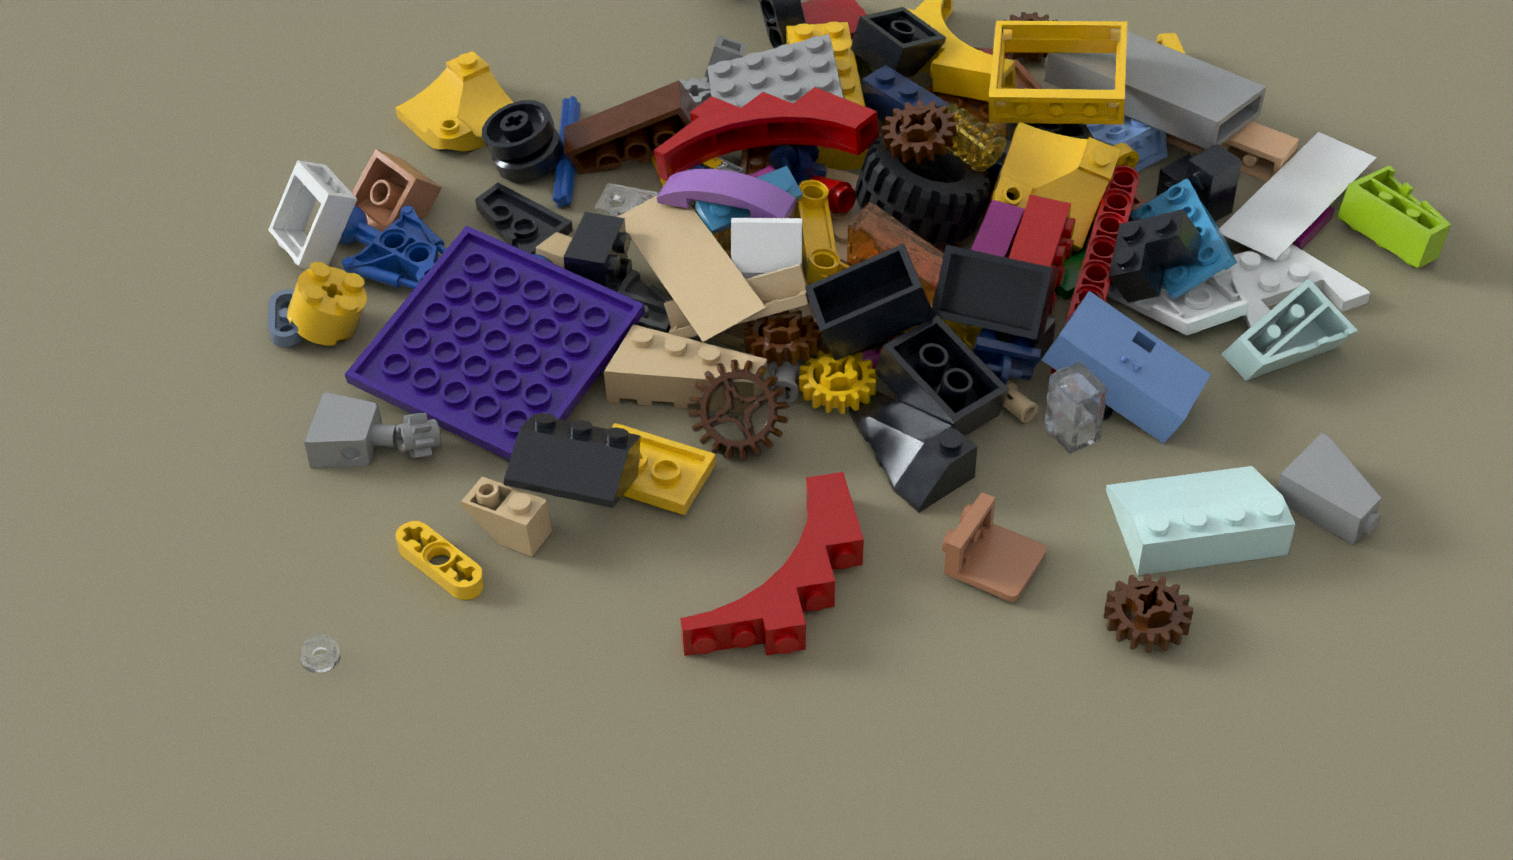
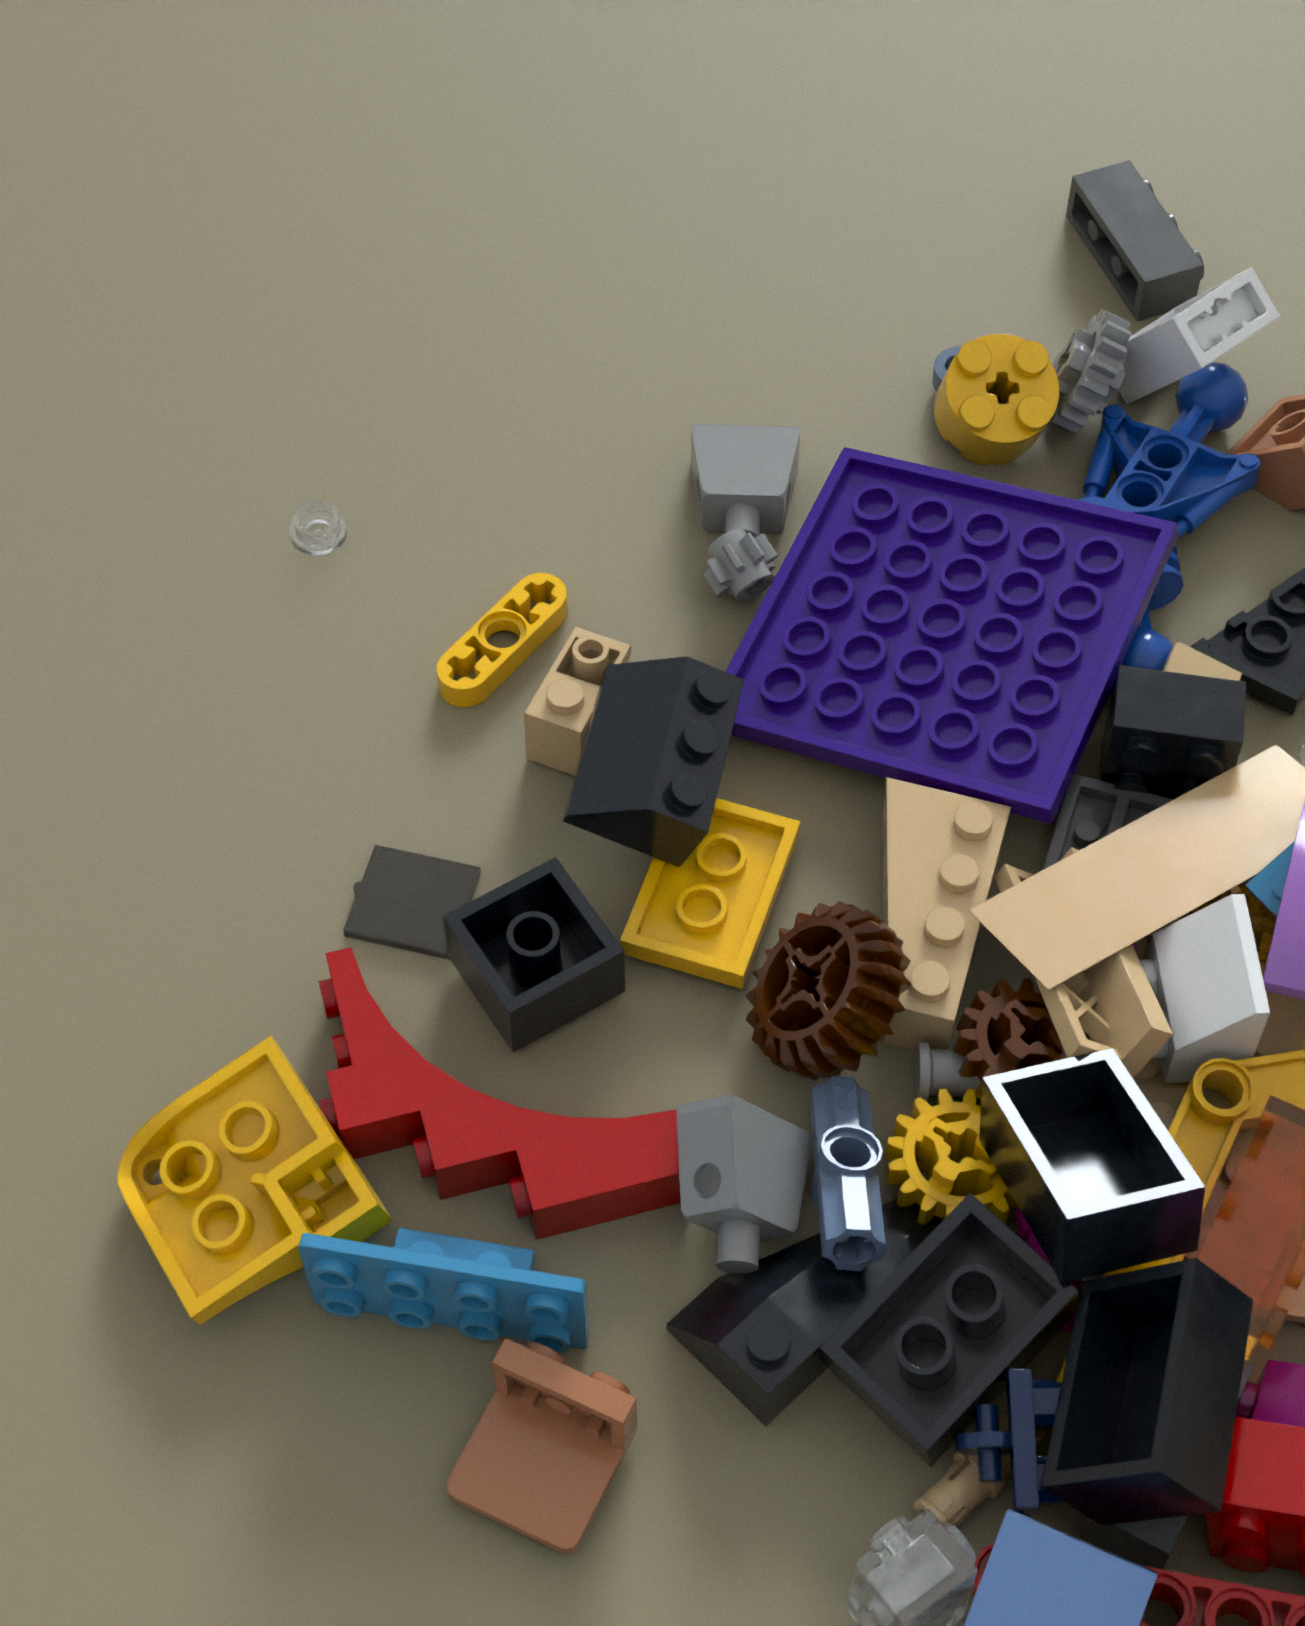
camera: 85 degrees right, 10 degrees up
(202, 242) = (1134, 239): none -> dark grey brick
(317, 245) = (1090, 369): none -> light grey gear
(630, 613) = (406, 898): none -> clear smoke piece
(692, 538) = (535, 954): none -> black brick
(833, 675) = (242, 1179): none -> yellow slope
(835, 449) = (740, 1175): none -> light grey torso
(846, 415) = (846, 1174): none -> sand blue piece
(893, 584) = (449, 1283): none -> dark azure bracket

